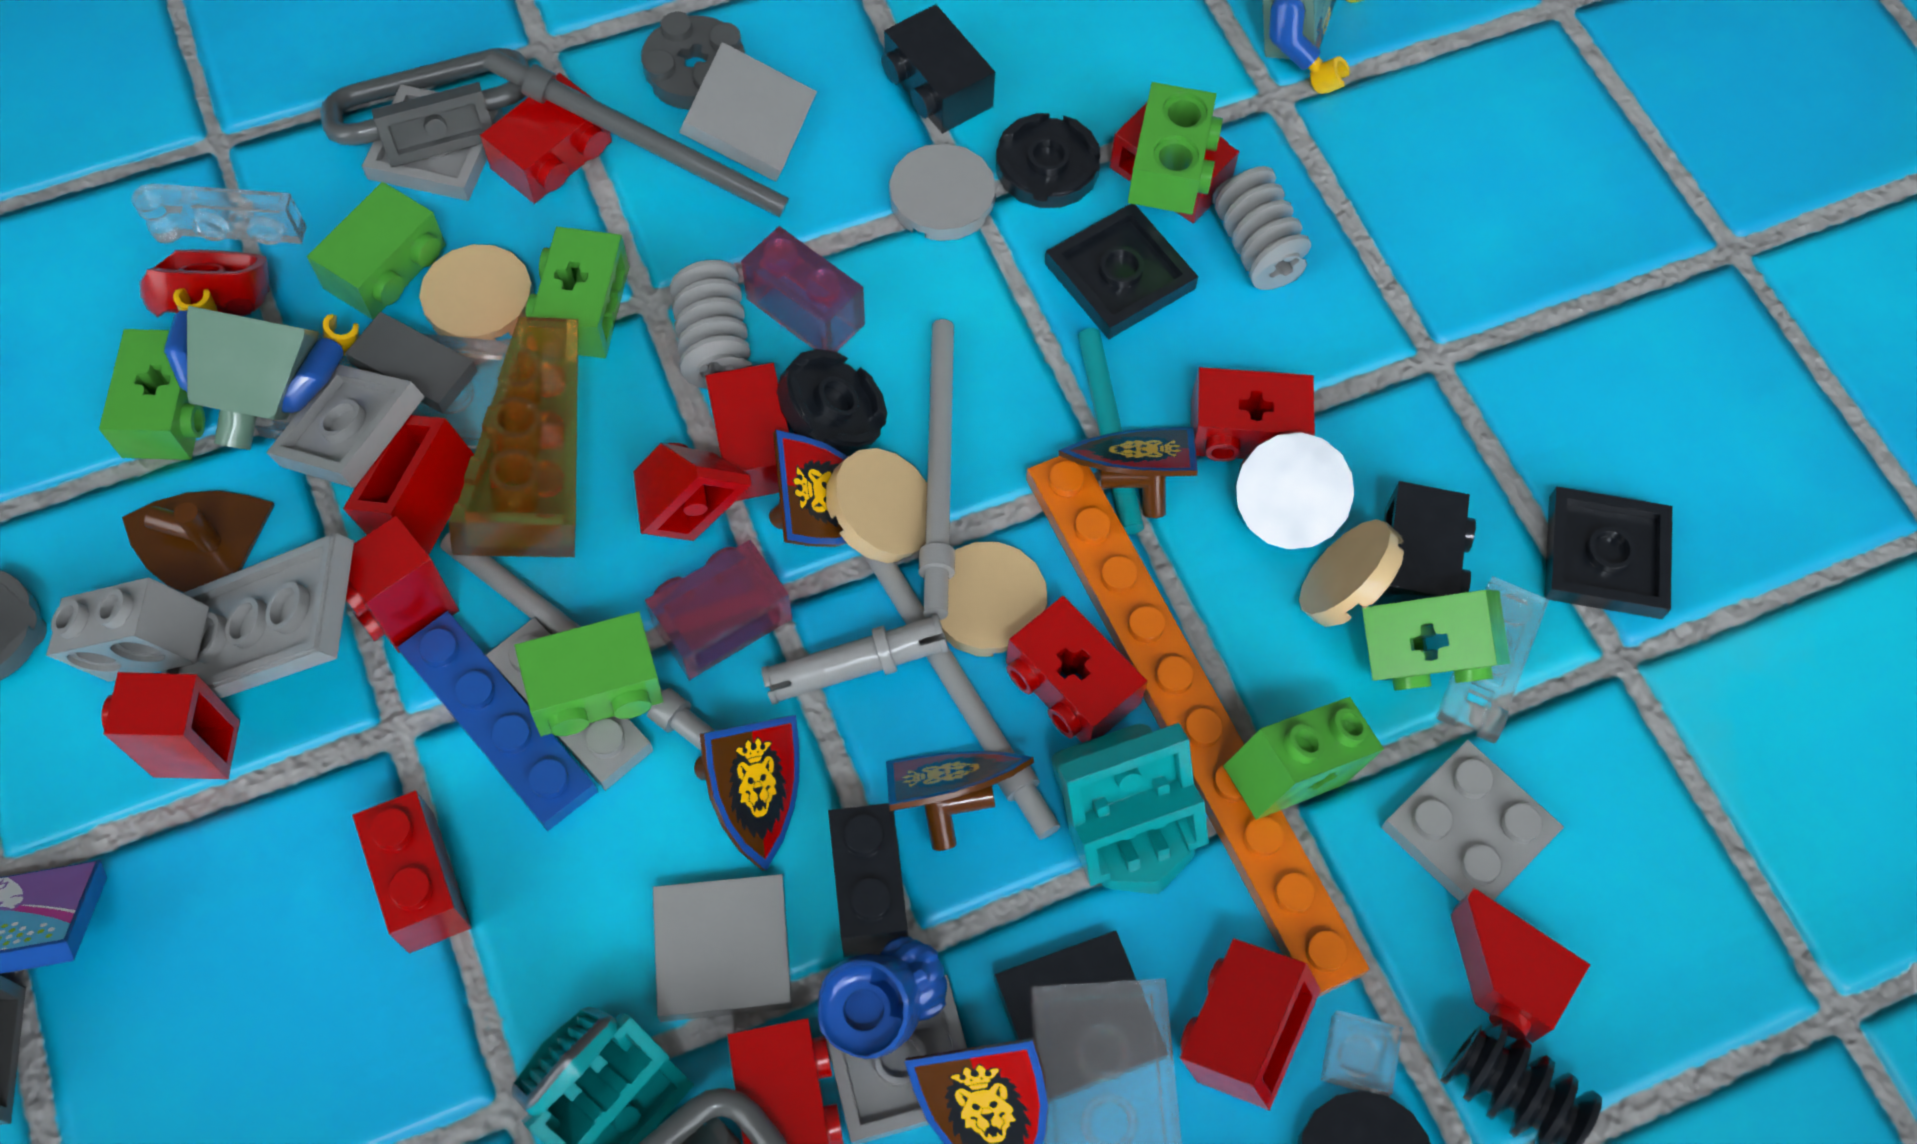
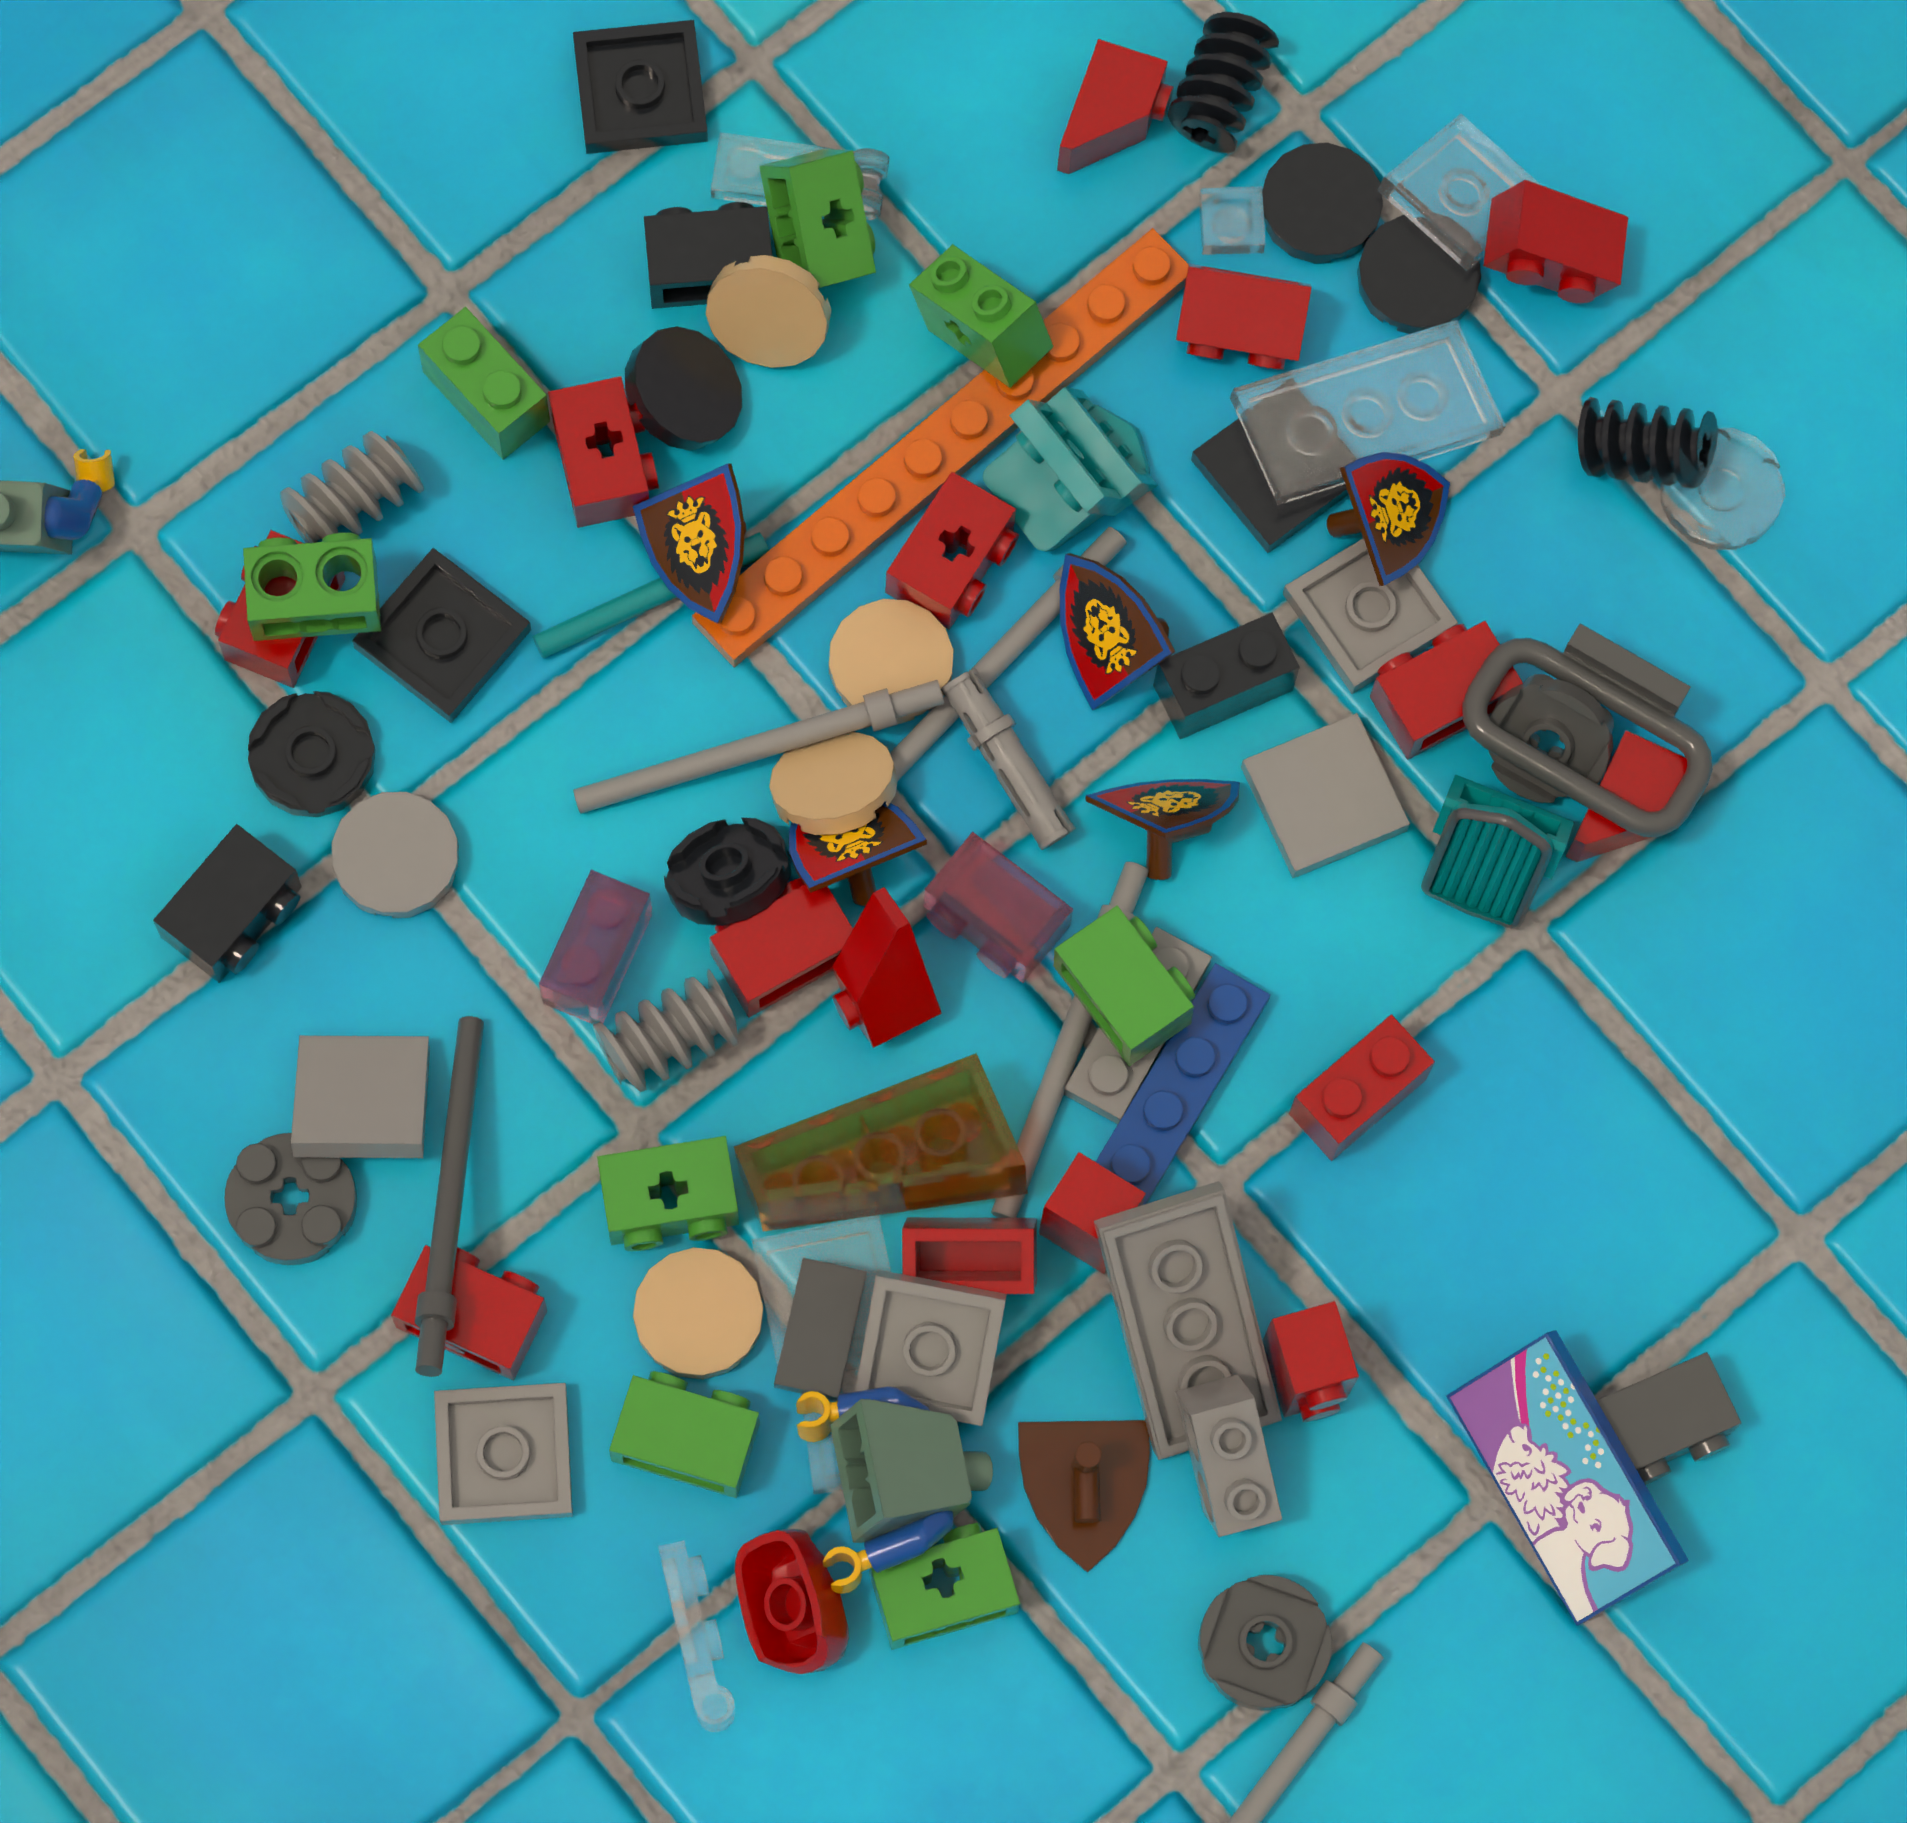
camera: 110 degrees left, 10 degrees up
(426, 123) = (503, 1439): dark grey bar -> none
(877, 999) = (1338, 620): blue hair -> none
(1340, 339) = (484, 383): none -> bright green brick
(1472, 825) = (980, 167): light grey plate -> none

